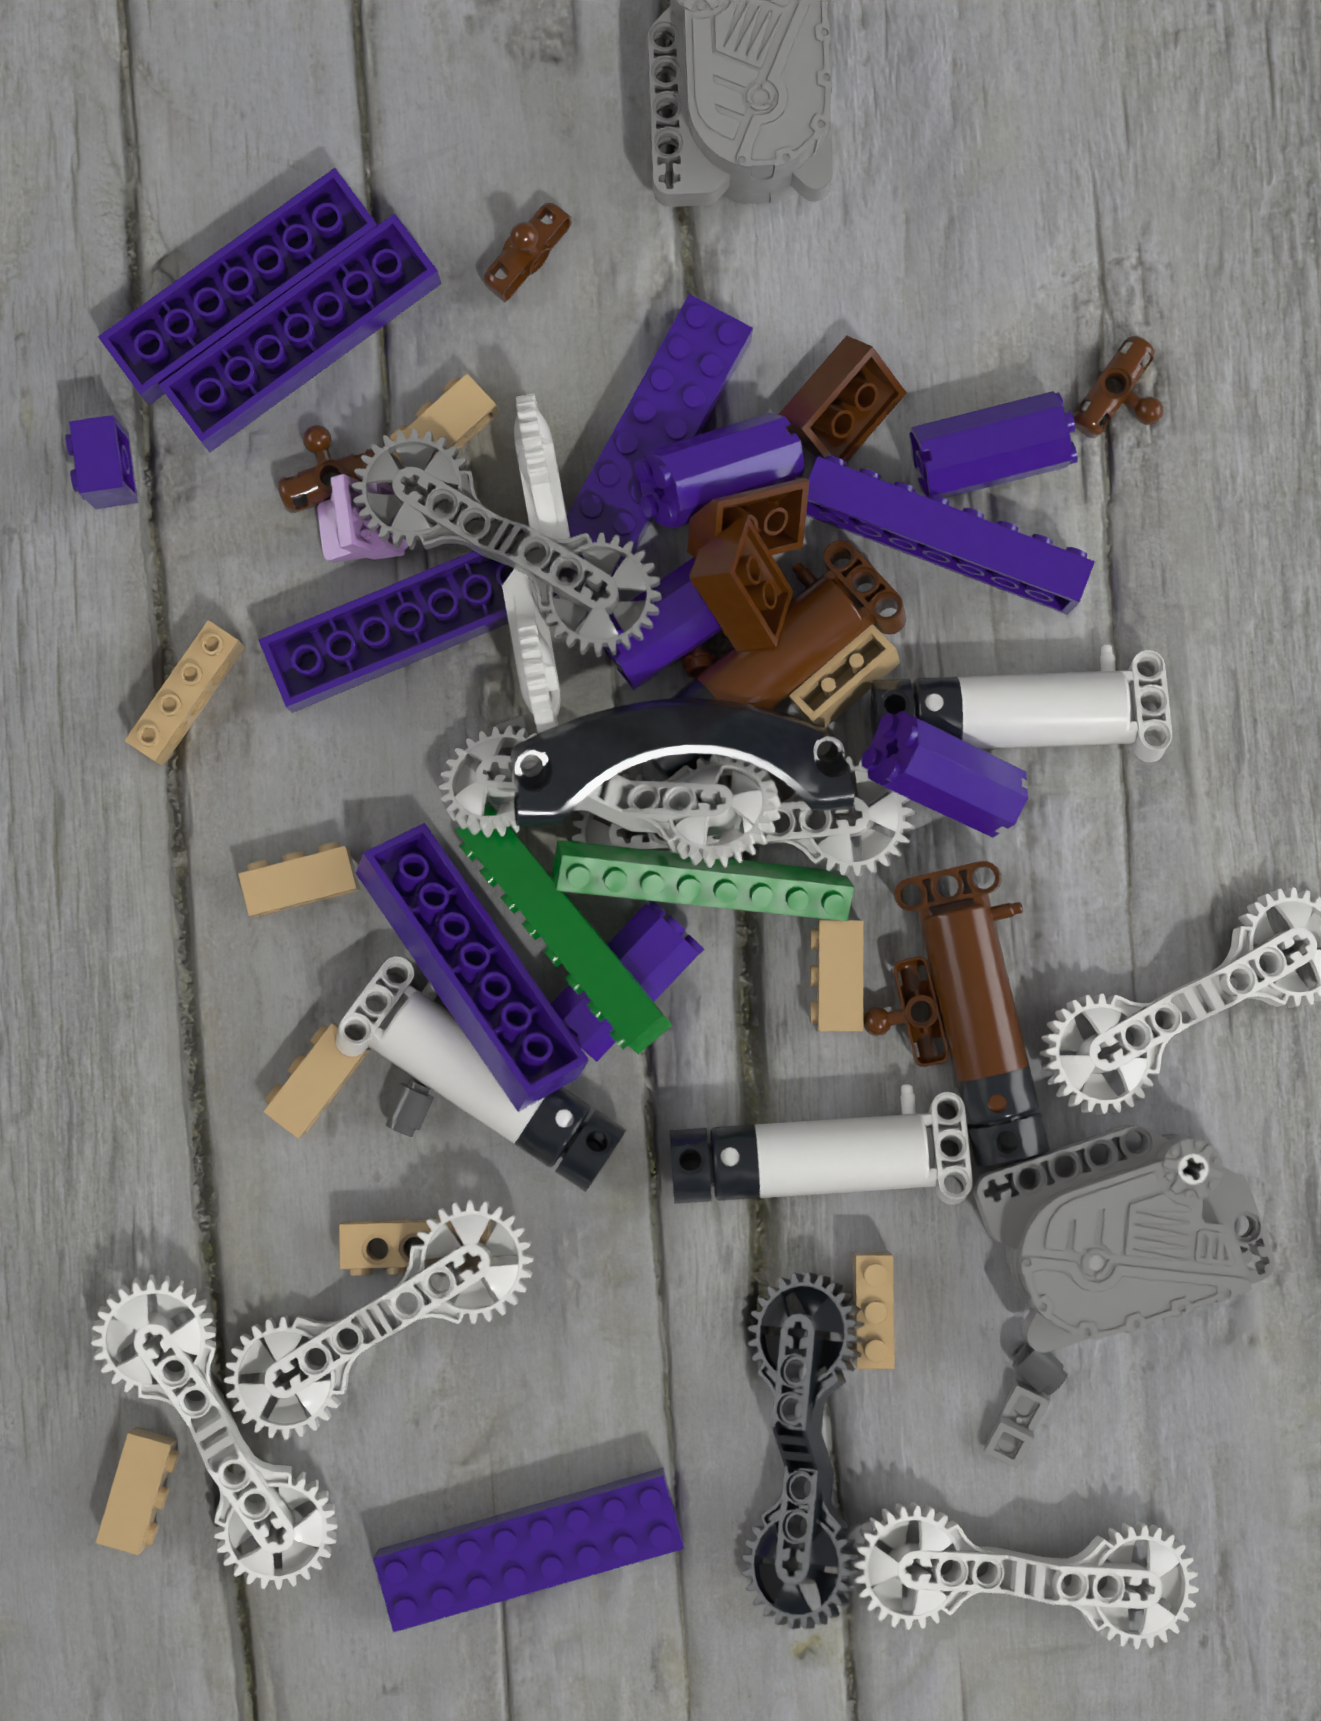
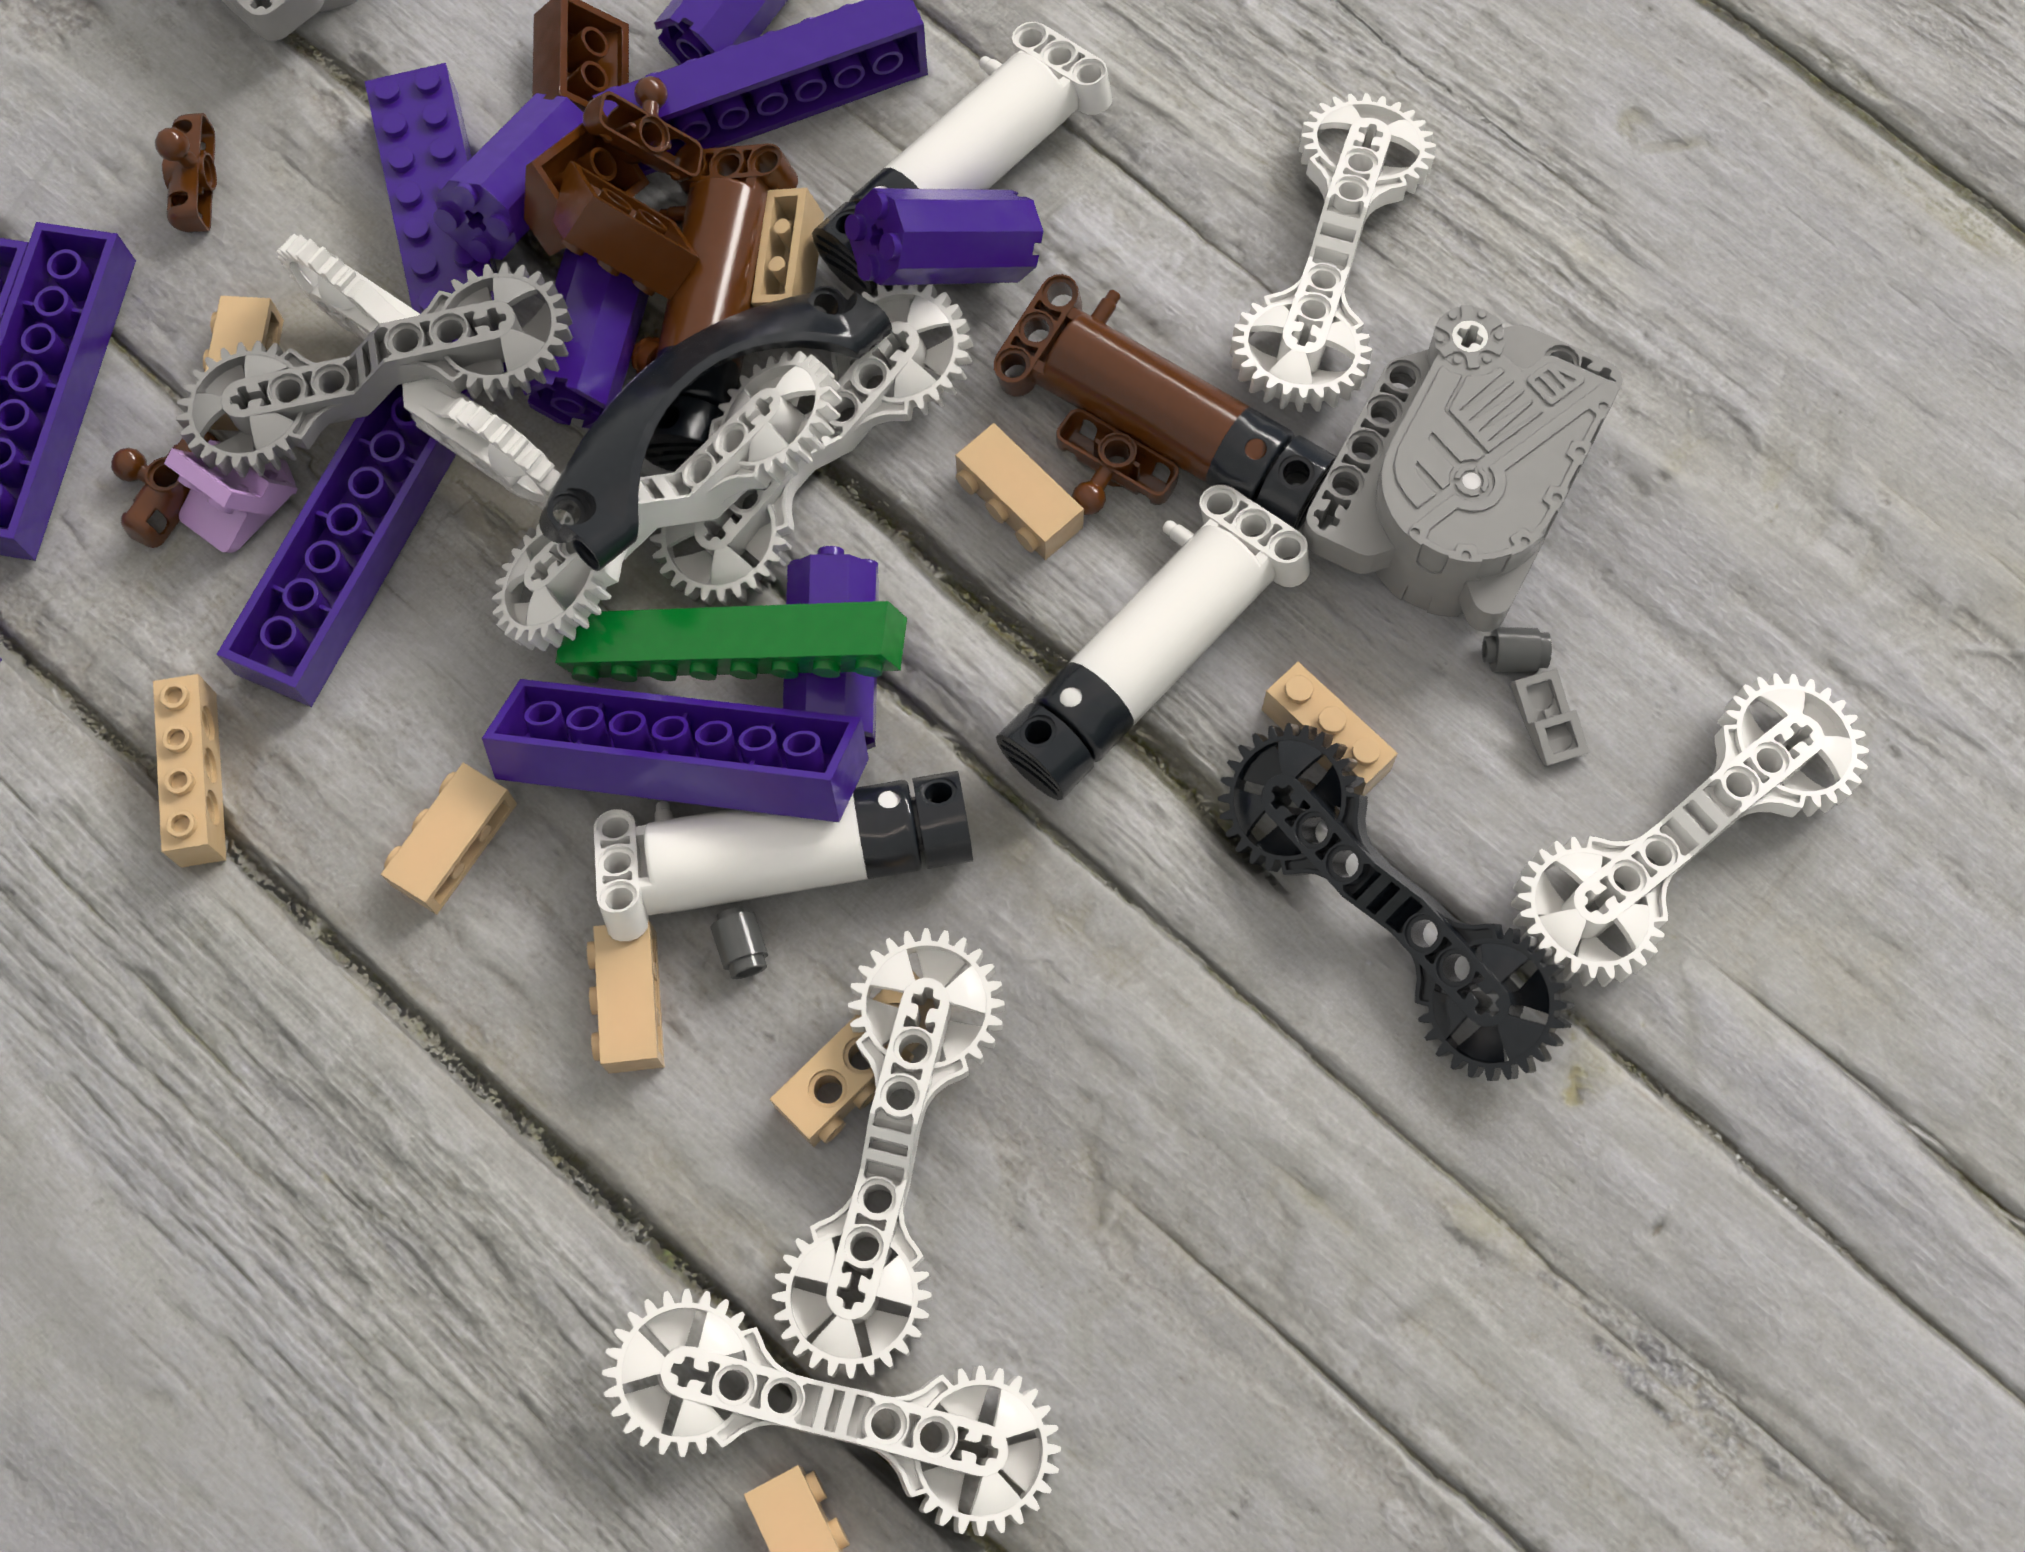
camera: 40 degrees left, 15 degrees down
(528, 1549) = (1237, 1237): dark purple brick -> none
(671, 879) = (815, 503): brick -> none
(821, 523) = (641, 134): none -> reddish brown piece

